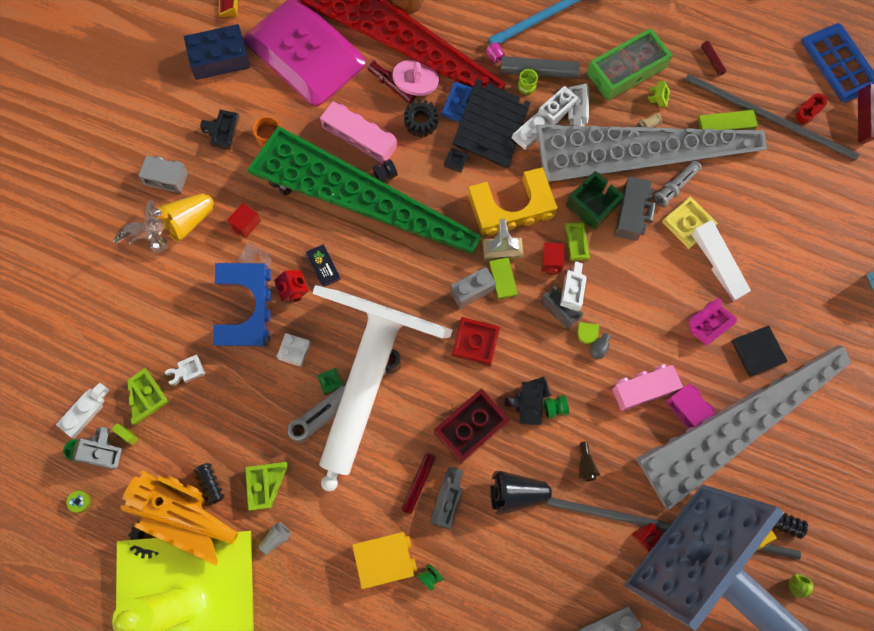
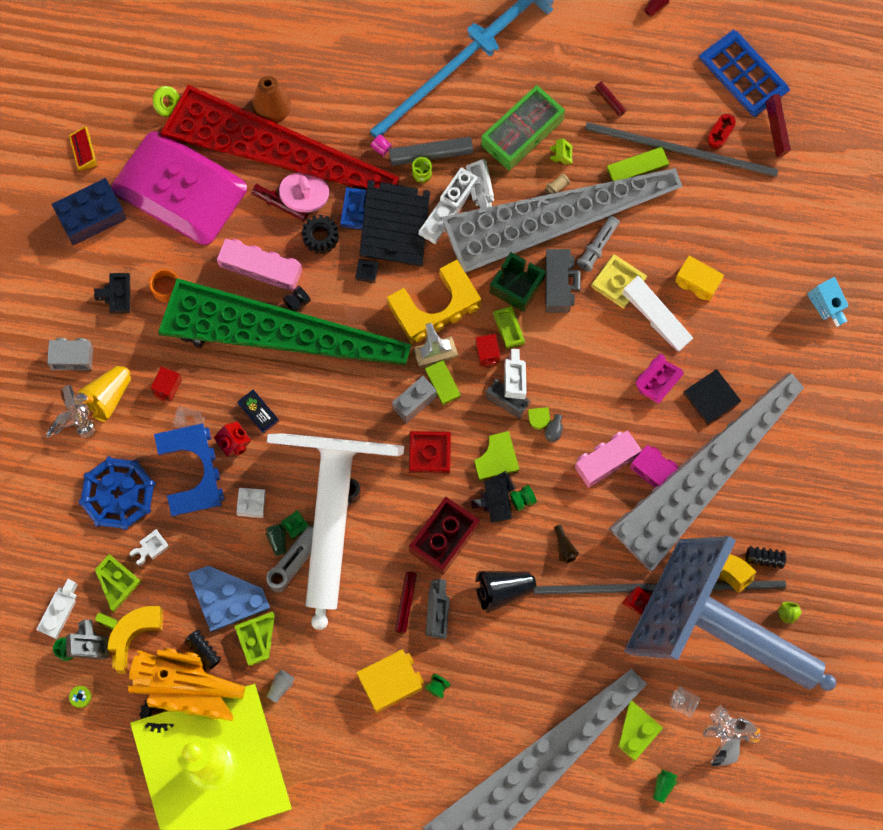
camera: 10 degrees left, 0 degrees up
(142, 445) = (131, 625): none -> yellow arch
(165, 301) = (110, 483): none -> blue plate
(246, 437) = (226, 597): none -> medium blue plate
(309, 390) = (277, 538): none -> clear green cone
(539, 362) = (498, 457): none -> lime tile
(768, 236) = (699, 278): none -> yellow brick

